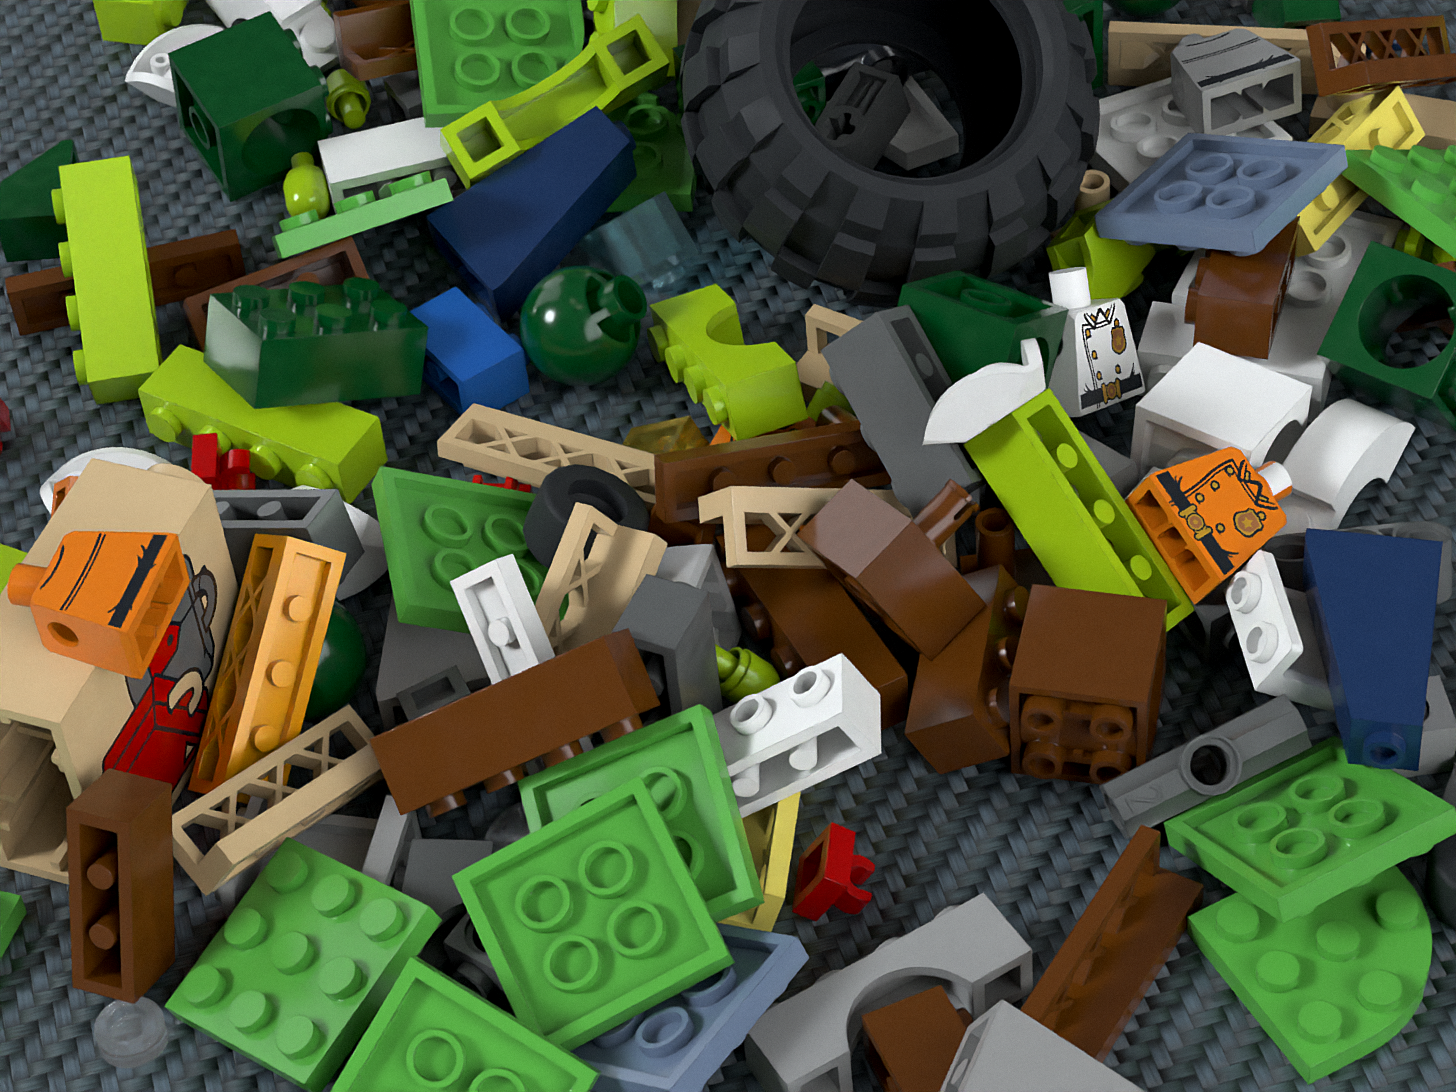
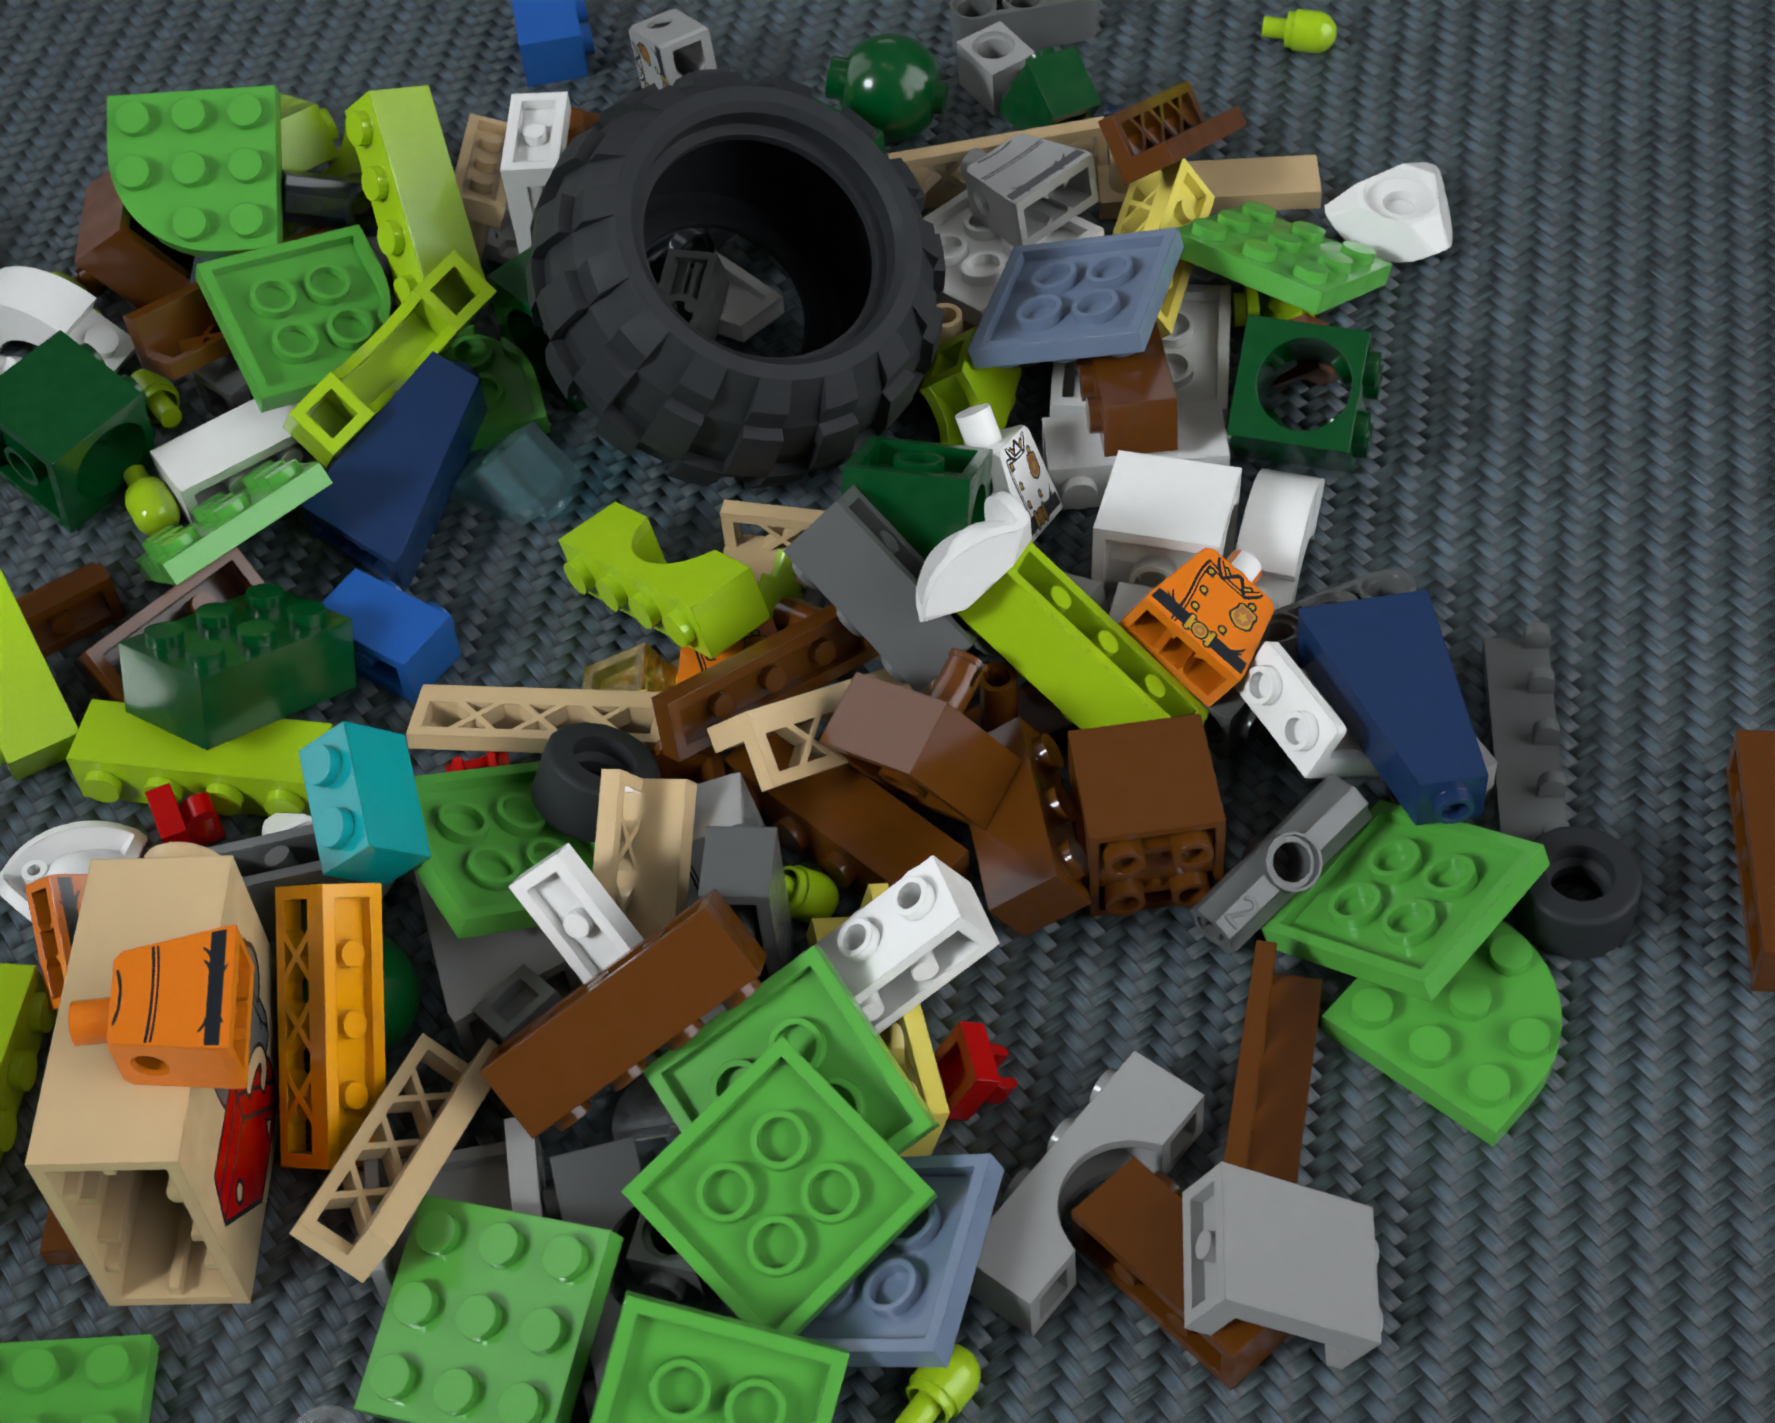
camera: 20 degrees left, 5 degrees up
(121, 885) = (275, 1300): reddish brown brick -> none
(355, 479) = (364, 804): none -> teal brick
(582, 324) = (500, 576): dark green brick -> none

